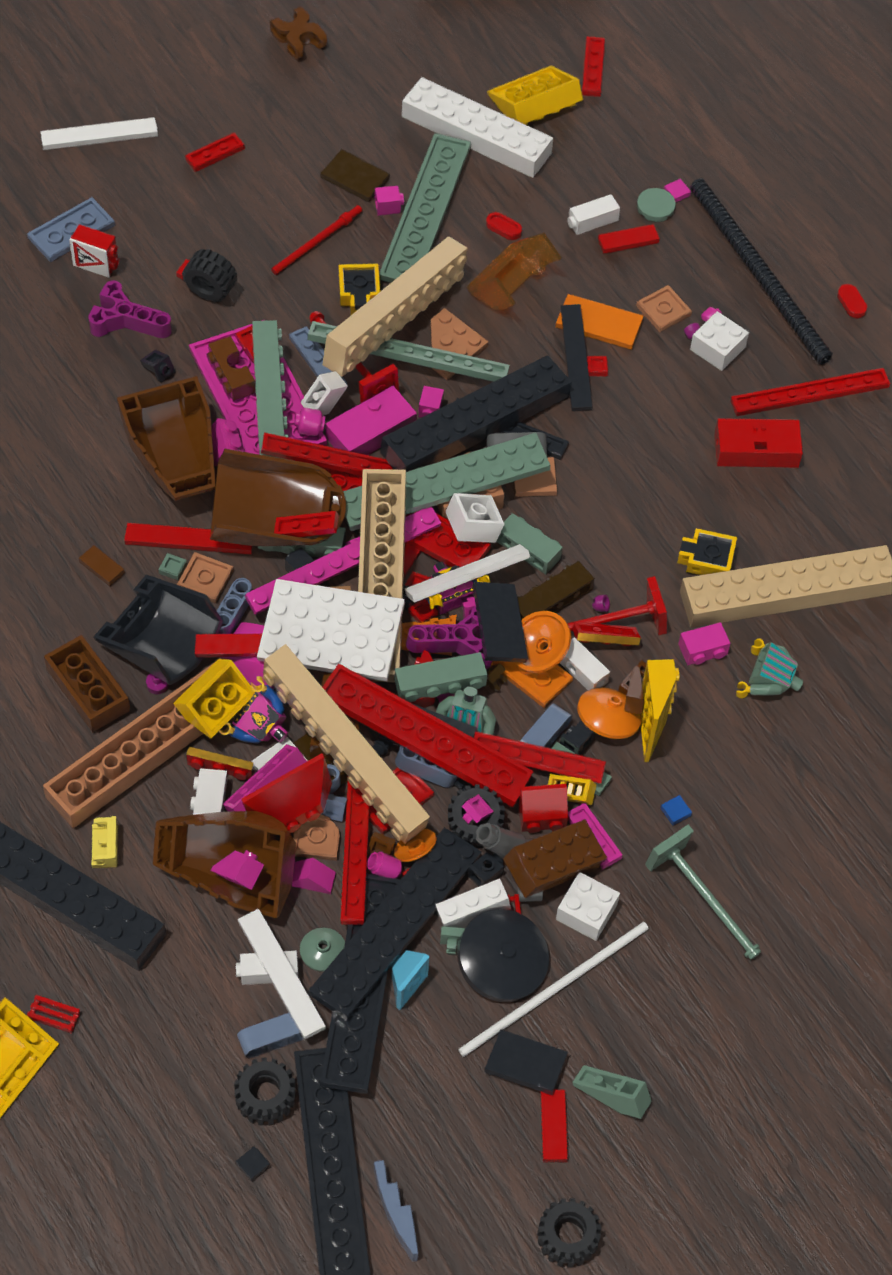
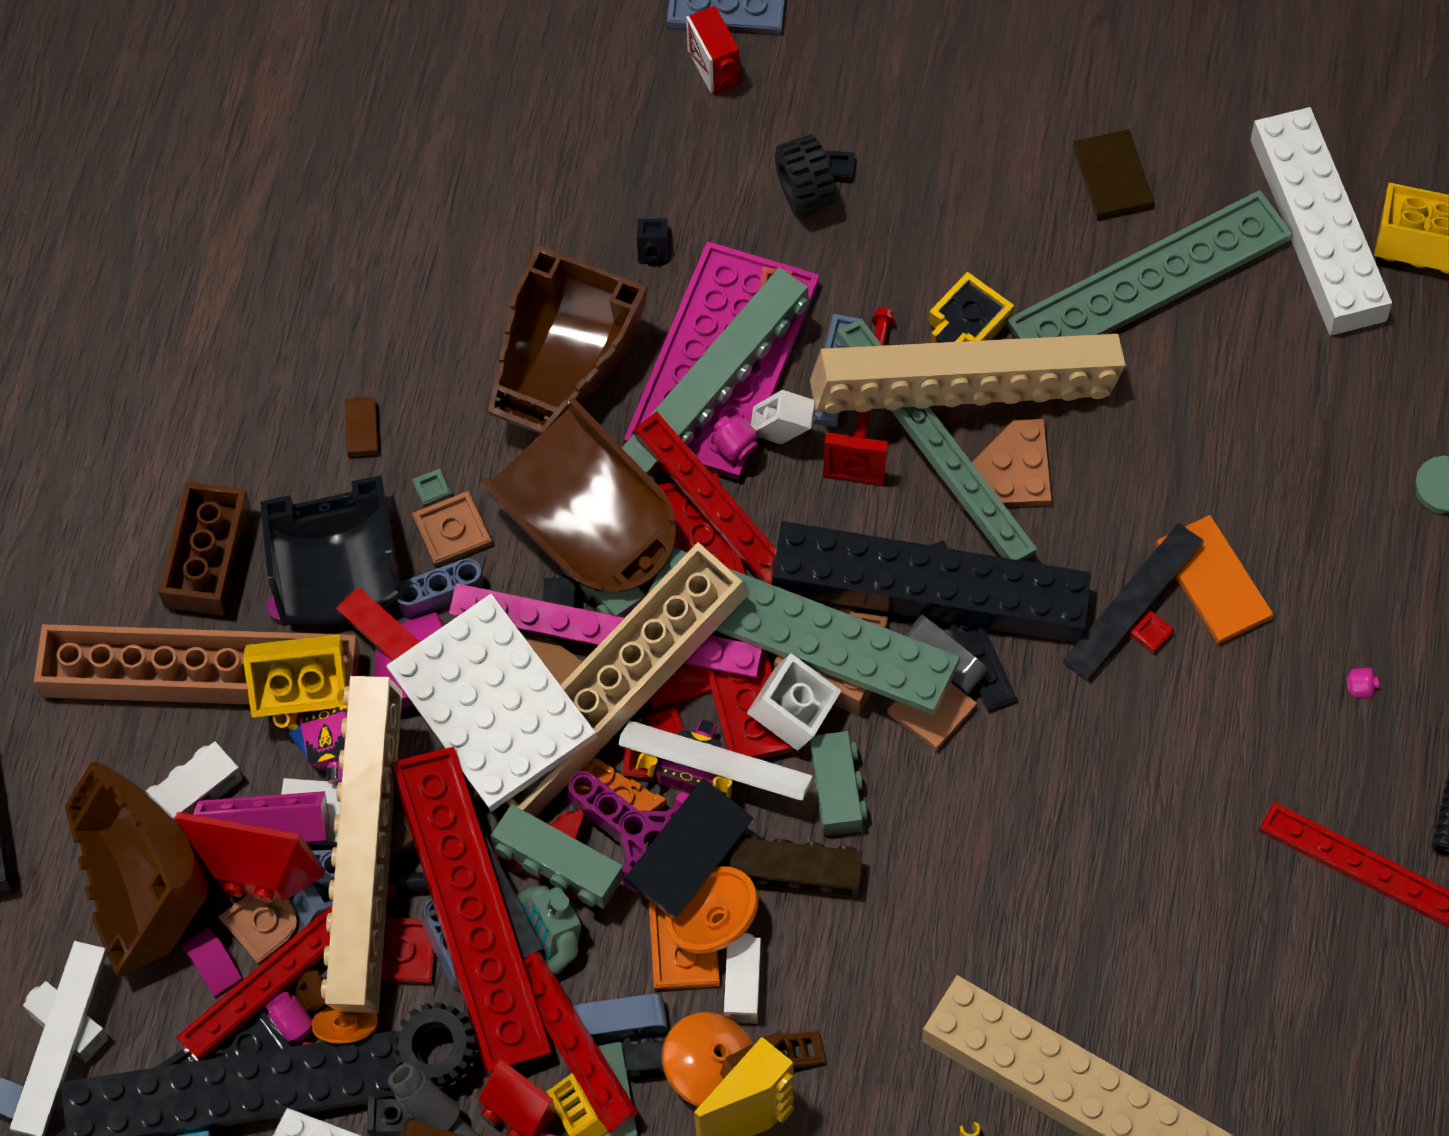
camera: 50 degrees right, 5 degrees up
(104, 842) = (53, 742): light yellow hinge -> none
(119, 313) = (646, 142): magenta beam -> none
(179, 538) = (460, 450): red tile -> none
(214, 152) = (981, 26): red tile -> none
(224, 437) = (622, 390): dark pink brick -> none
(235, 767) = (246, 754): plate -> none
(236, 381) = (721, 283): reddish brown arch -> none
(239, 868) = (128, 889): dark pink slope -> none
(307, 524) = (591, 557): red plate -> none
(313, 955) = (153, 1033): sand green dish -> none
(344, 219) = (1044, 220): red bar -> none
(365, 425) = (806, 493): dark pink brick -> none
(388, 200) = (1115, 234): dark pink brick -> none
(430, 400) = (903, 521): dark pink brick -> none
(476, 810) = (430, 1041): dark pink tile -> none
(494, 674) = (629, 903): dark brown tile -> none
(504, 226) = (1226, 370): red tile -> none
(511, 269) = (1163, 433): clear orange windscreen -> none
(593, 214) = (1347, 438): white brick -> none
(601, 603) = (851, 927): magenta hinge -> none
(606, 634) = (805, 964): red plate -> none
(628, 238) = (1363, 502): red tile -> none
(653, 606) = (891, 980): red tile -> none
(664, 308) = (1312, 625): nougat tile -> none
(691, 329) = (1314, 682): magenta hinge -> none
(704, 644) = (907, 1075): dark pink brick -> none
(707, 552) = (1030, 971): piece -> none
(719, 340) = (1331, 720): white brick -> none
(758, 443) = (1239, 886): red brick -> none

